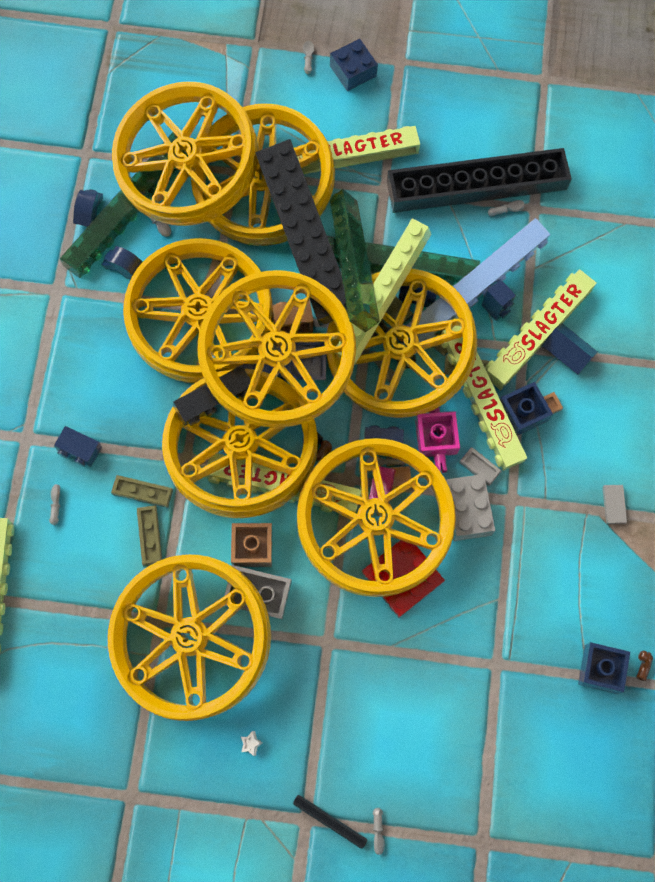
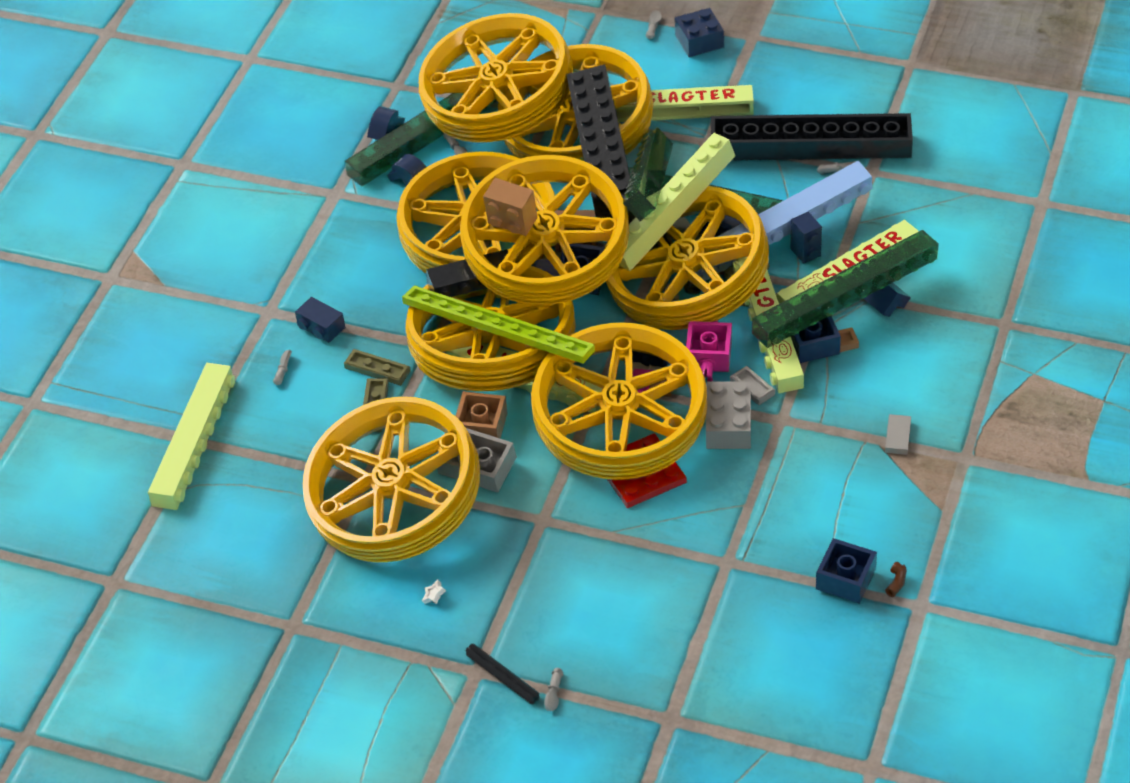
camera: 20 degrees right, 25 degrees down
(247, 346) = (510, 206): none -> medium nougat brick
(254, 457) = (499, 324): none -> lime plate
(549, 364) = (844, 288): none -> clear green brick

